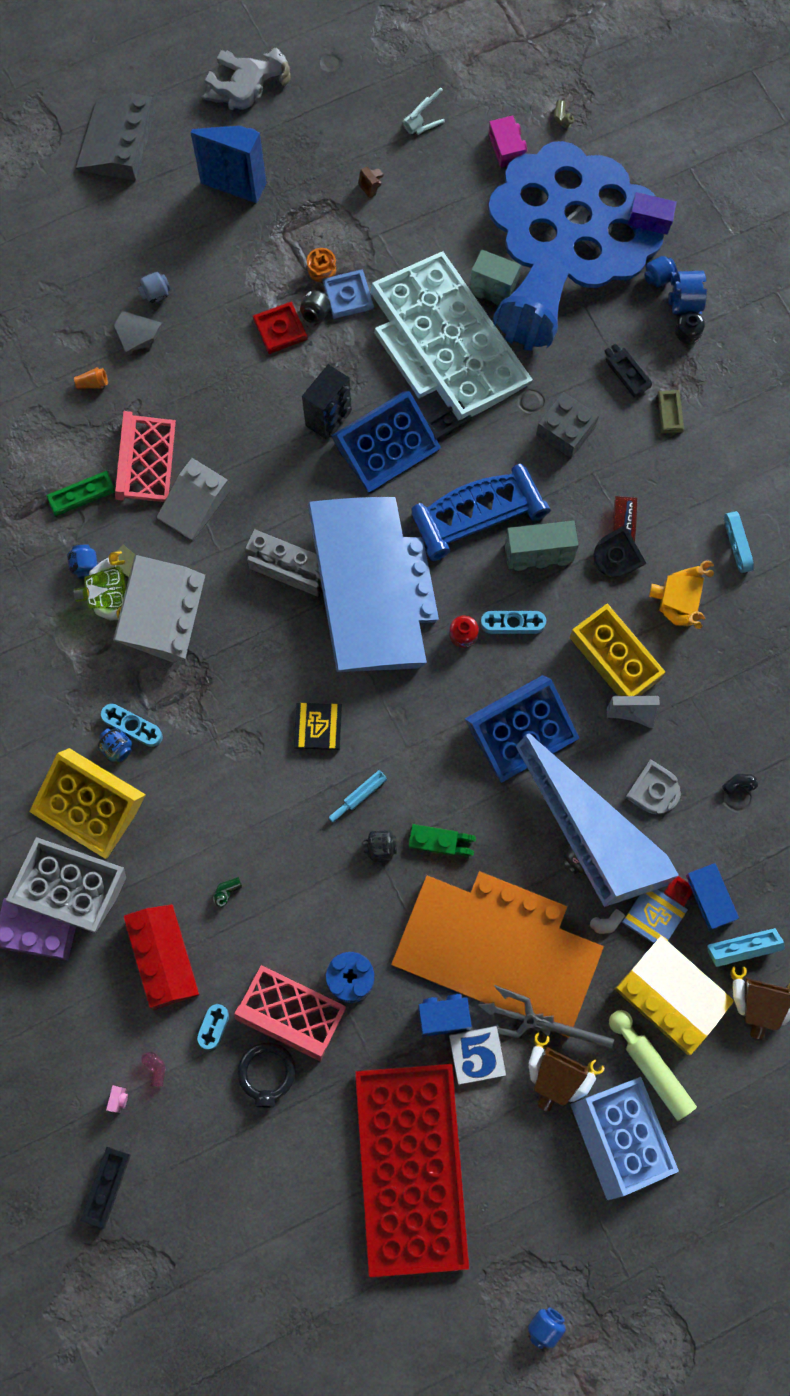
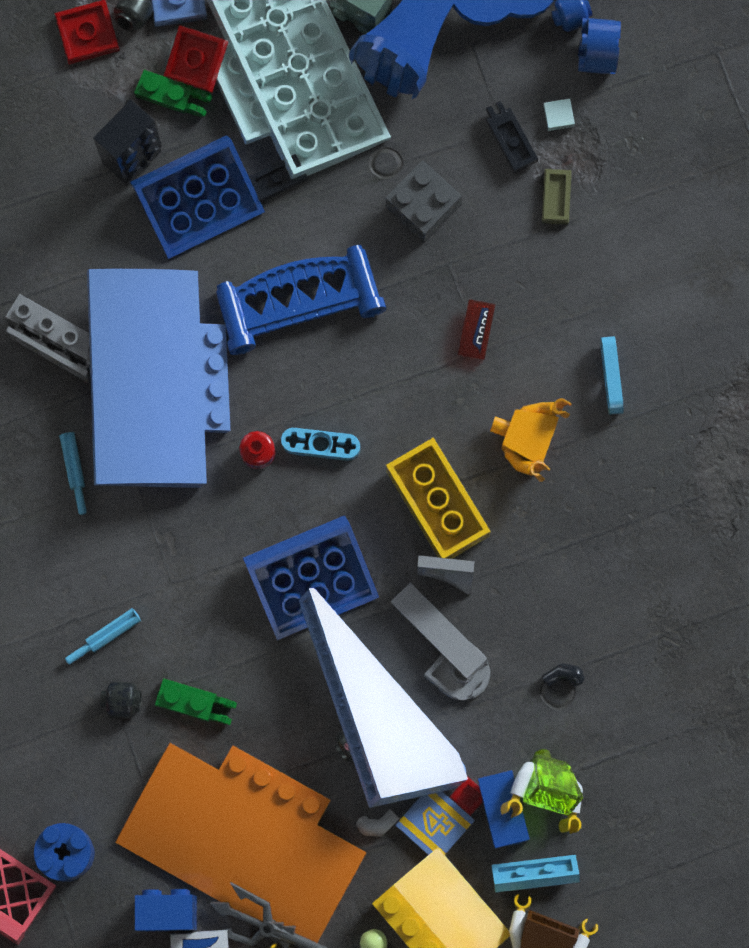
camera: 10 degrees right, 5 degrees up
(315, 664) = (73, 468): none -> medium azure axle
(318, 726) = (67, 545): black tile -> none
(356, 366) = (171, 93): none -> green hinge
(370, 336) = (195, 58): none -> red tile
(541, 545) = (365, 354): sand green brick -> none
(618, 554) = (460, 373): black tile -> none
(634, 759) = (439, 631): none -> light grey tile
(662, 350) = (559, 114): none -> light aqua tile
(690, 327) = (596, 90): black head -> none
(749, 873) = (550, 786): none -> clear neon green torso

